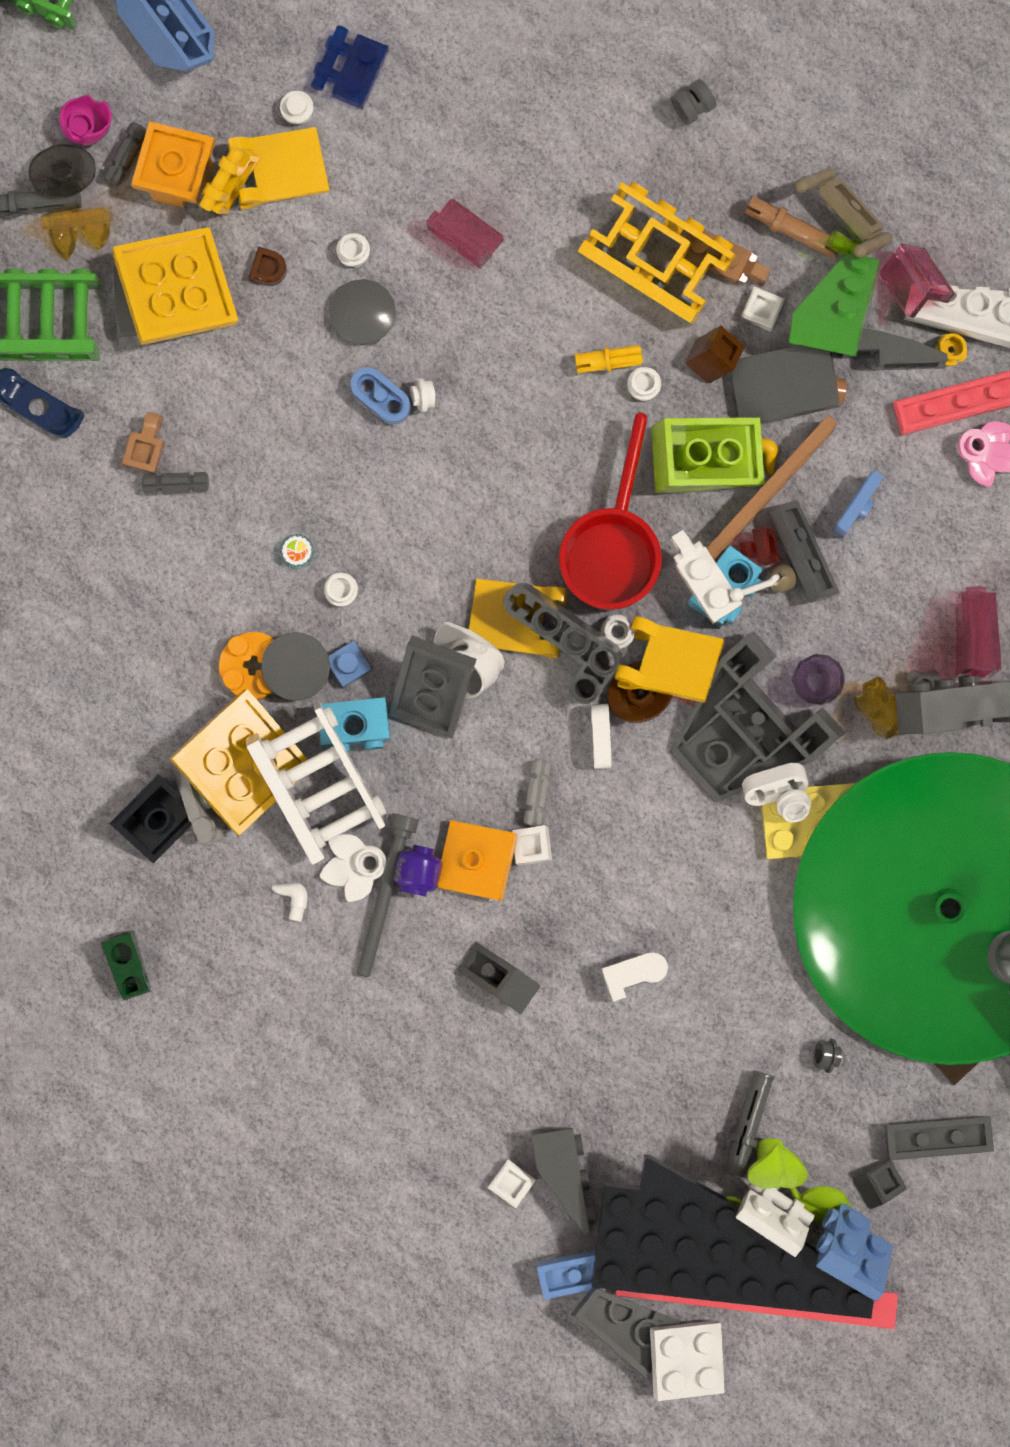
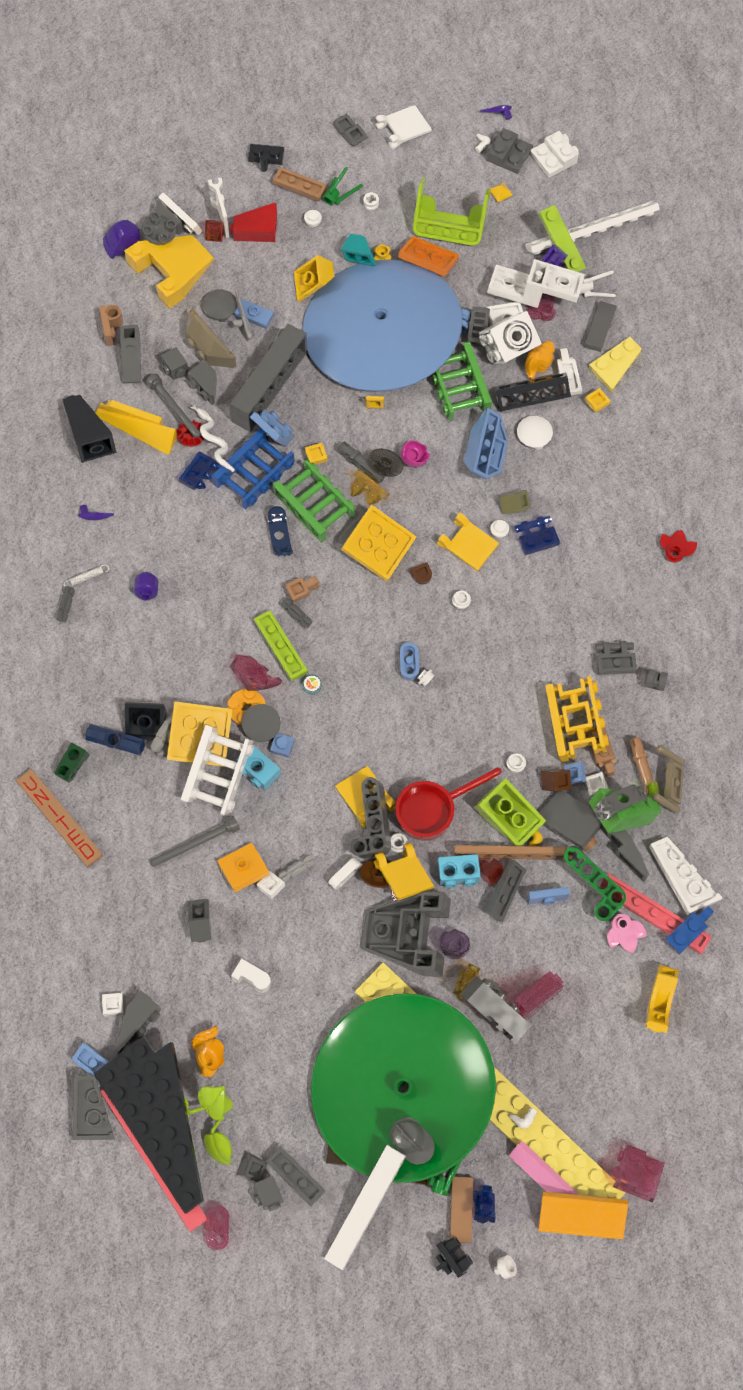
camera: 45 degrees right, 15 degrees down
(125, 154) = (416, 481): dark grey axle -> none
(128, 891) = (105, 737): none -> dark blue piece
(174, 164) = (428, 501): light orange panel -> none
(190, 1044) = (59, 818): none -> medium nougat tile
(204, 545) = (280, 645): none -> lime plate
(213, 616) = (253, 674): none -> clear pink slope
(231, 177) = (444, 524): yellow plate -> none
(276, 52) = (514, 501): none -> olive panel
(298, 898) = (162, 809): white animal -> none
(340, 589) = (311, 715): white plate -> none
(348, 866) = (194, 818): white plate -> none
(362, 312) = (438, 625): dark grey dish -> none
(418, 871) = (216, 846): dark purple head -> none
(432, 687) = (301, 782): dark grey plate -> none
(465, 233) = (511, 637): clear pink panel -> none
(489, 658) = (330, 790): white helmet -> none
(608, 359) = (512, 738): yellow axle -> none
(625, 129) = (615, 663): none -> dark grey plate
(686, 1114) = (208, 1051): none -> light orange hair
(687, 1360) = (96, 1147): white plate -> none
(703, 577) = (452, 855): white hinge -> none
(729, 317) = (577, 772): none -> medium blue plate
(748, 1124) = (238, 1079): dark grey pin -> none
(772, 783) = (390, 963): white beam -> none
(773, 581) = (483, 890): hinge -> none
(784, 1228) = (189, 1121): white plate -> none
(793, 805) = (387, 979): white plate -> none
(827, 1055) = (289, 1093): dark grey plate -> none
(830, 320) = (611, 805): none -> dark grey piece
(854, 1252) = (208, 1177): medium blue plate -> none
(891, 429) = (592, 880): none -> green beam
(914, 279) = (671, 833): clear pink panel -> none
(920, 1292) = (215, 1227): none -> clear pink plate
(933, 1192) = (268, 1194): none -> dark grey brick
(957, 343) = (659, 878): yellow plate -> none

